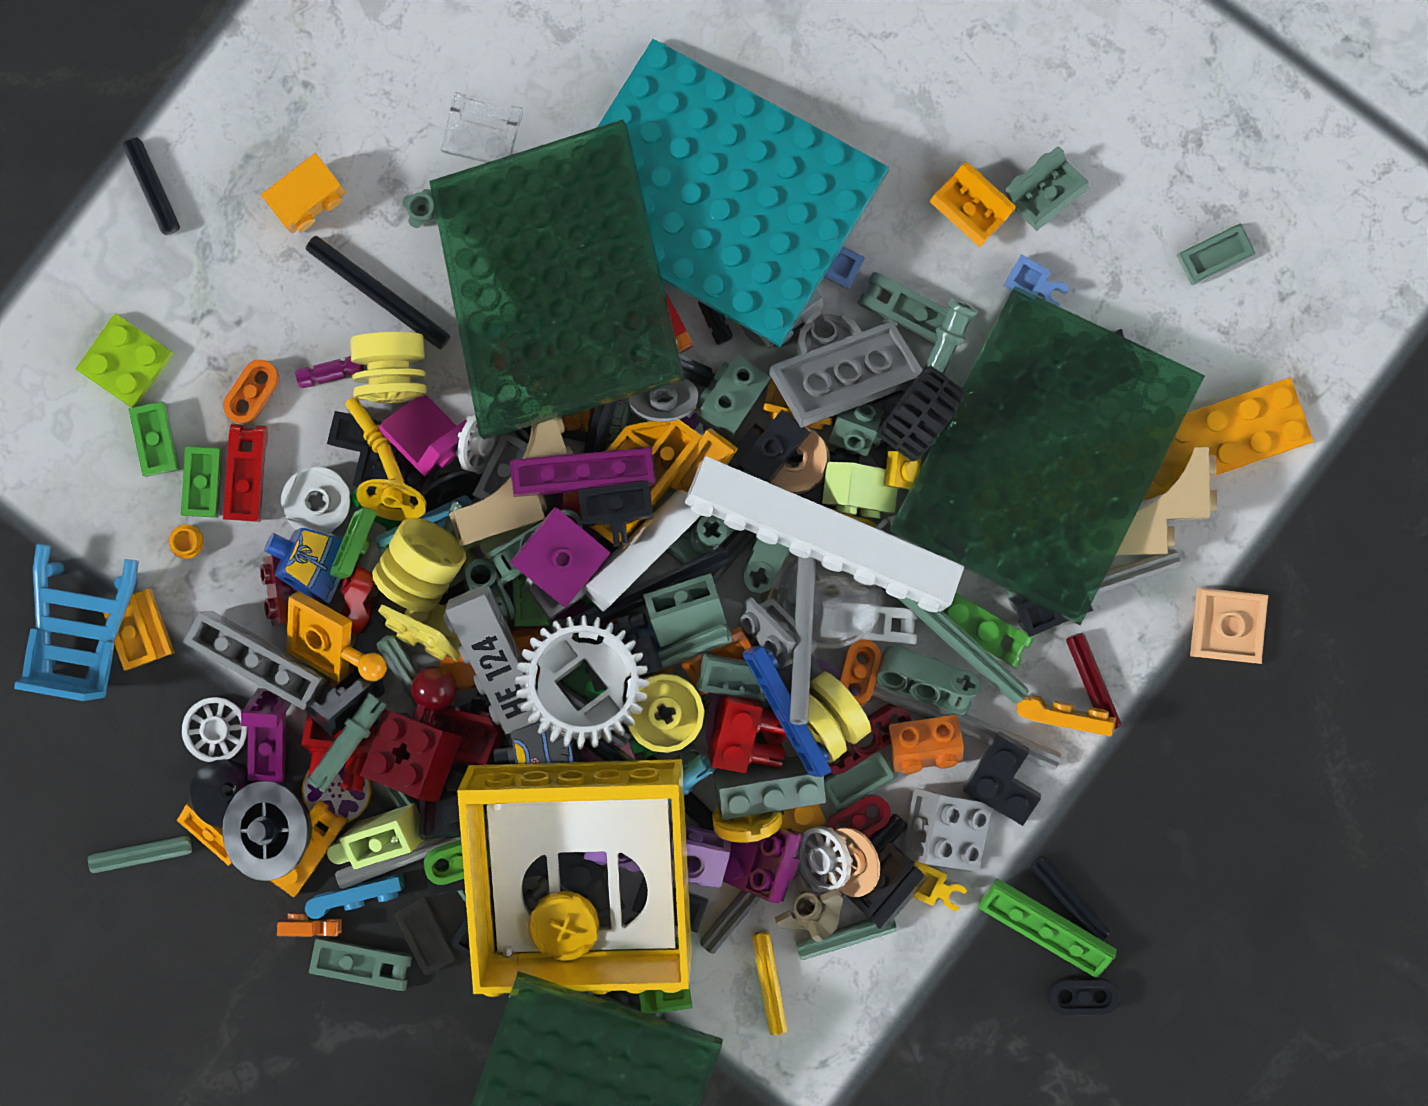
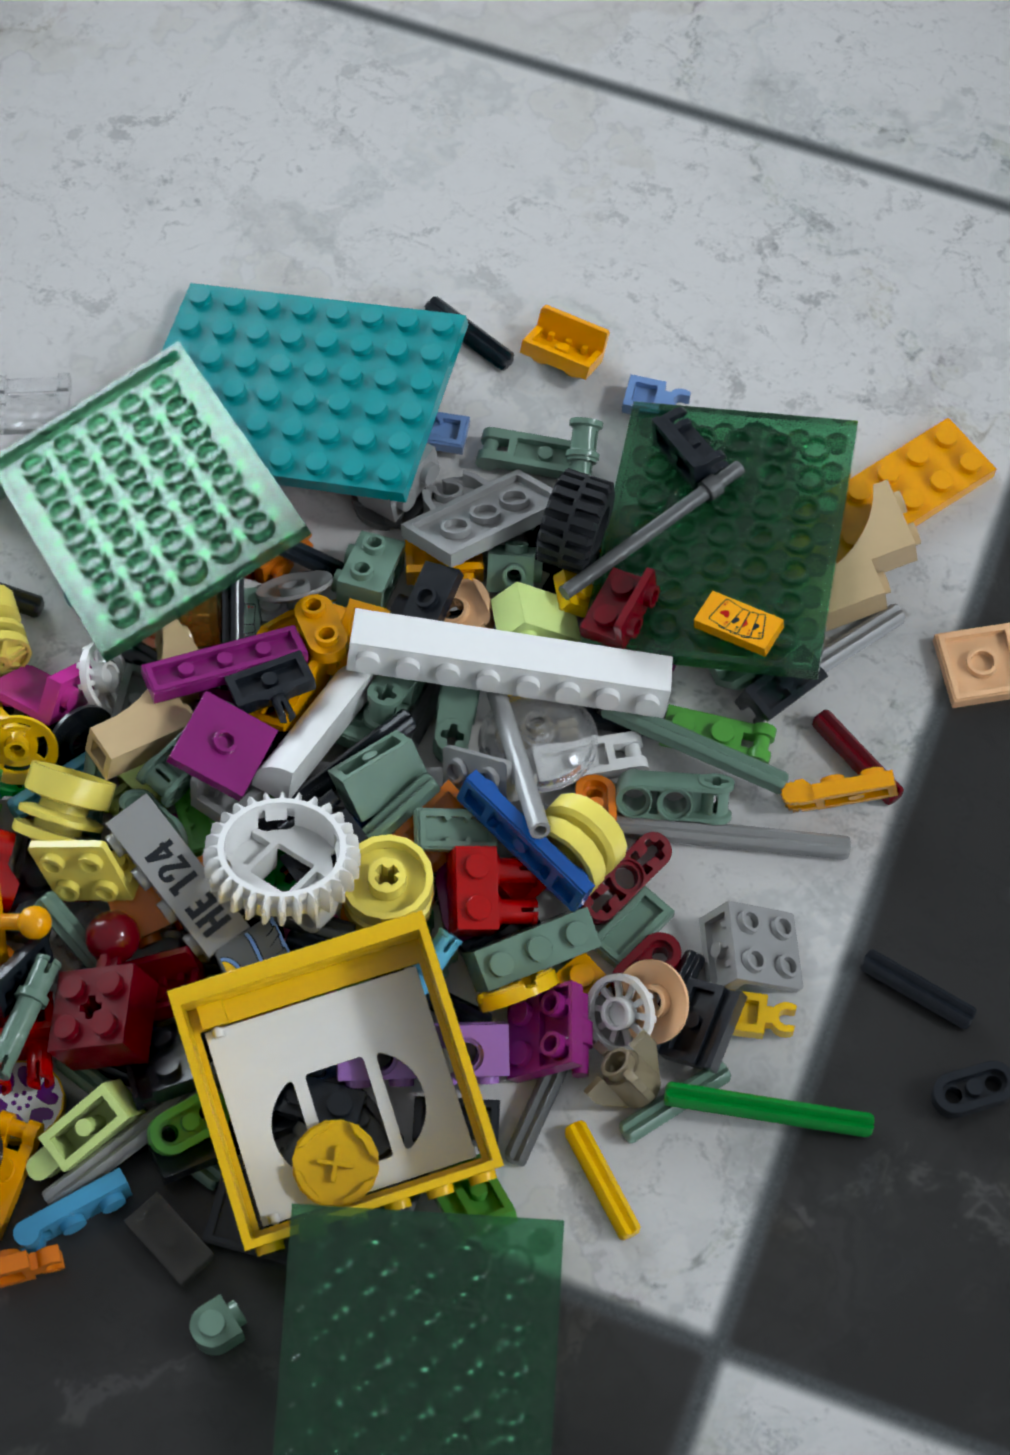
camera: 15 degrees left, 25 degrees down
(359, 963) = (95, 1295): sand green plate -> none
(445, 1015) = (217, 1326): none -> sand green plate
(673, 454) = (318, 621): none -> light orange plate
(715, 320) = (325, 511): black axle -> none
(885, 154) = (477, 338): none -> black axle
(916, 969) = (768, 1109): none -> green axle
(926, 744) = (696, 863): orange bracket -> none
(934, 506) = (620, 608): none -> dark red bracket
(995, 781) = (786, 886): black plate -> none
(1029, 556) = (738, 623): none -> light orange tile
(1045, 361) = (686, 447): none -> black hinge
(1046, 188) = (634, 312): sand green bracket -> none
(1047, 928) = (903, 1025): bright green tile -> none
(1049, 409) = (707, 490): none -> dark grey bar
(1216, 254) = (828, 333): sand green tile -> none

